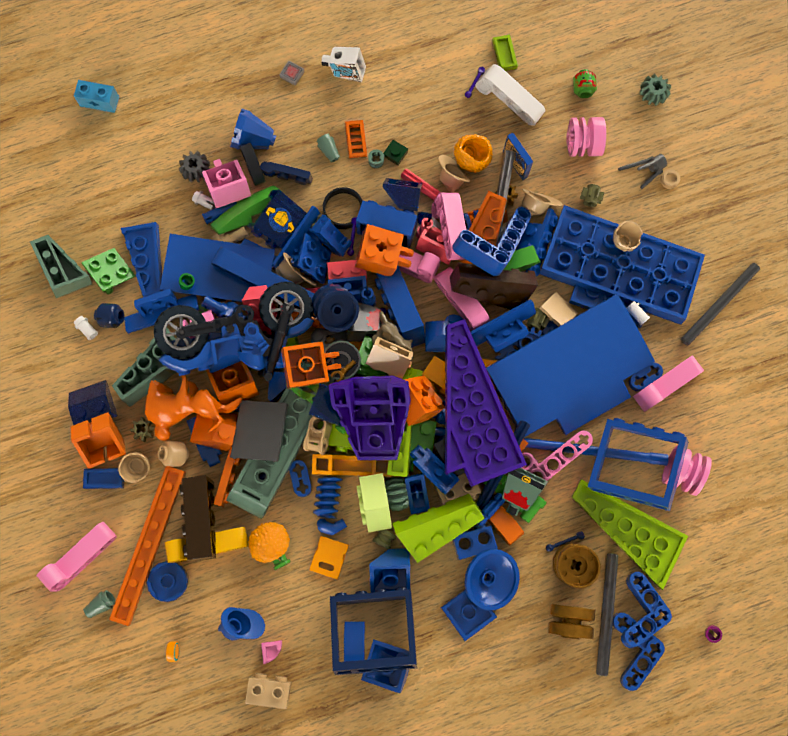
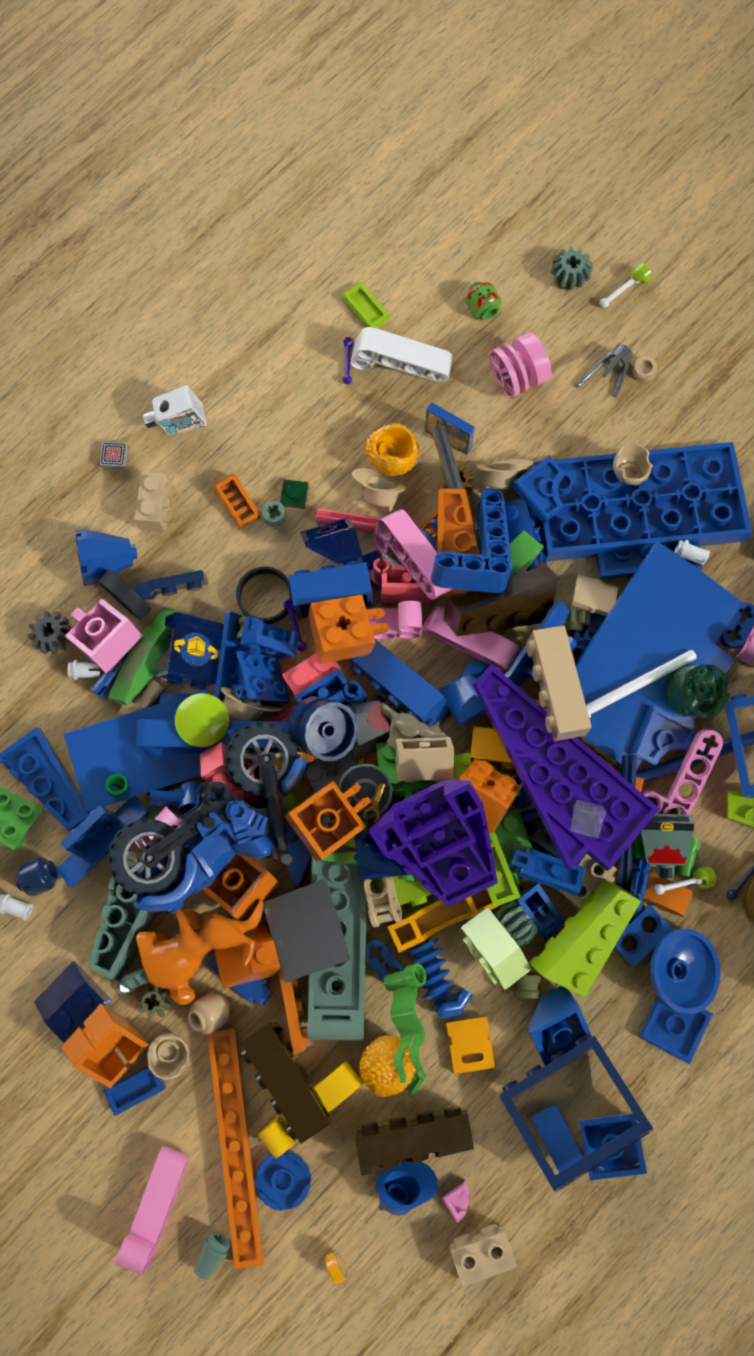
camera: 20 degrees left, 0 degrees up
(134, 410) = (132, 982): none -> sand green gear
(260, 265) = (202, 720): none -> lime dish
(261, 597) = (413, 1139): none -> dark brown wedge
(294, 512) = (404, 1016): none -> bright green flag
(301, 114) = (153, 501): none -> tan brick
(328, 147) = (208, 528): sand green cone -> none
(475, 446) = (587, 818): none -> clear slope
(501, 352) = (558, 683): none -> tan brick
(509, 379) = (640, 682): none -> white bar
(535, 527) = (702, 878): none -> hinge
(555, 420) = (661, 734): none -> blue tile
(558, 223) = (540, 489): none -> blue tile
(592, 195) = (562, 434): olive gear -> none
(593, 403) = (698, 691): none -> clear green brick
(700, 115) = (640, 275): none -> hinge

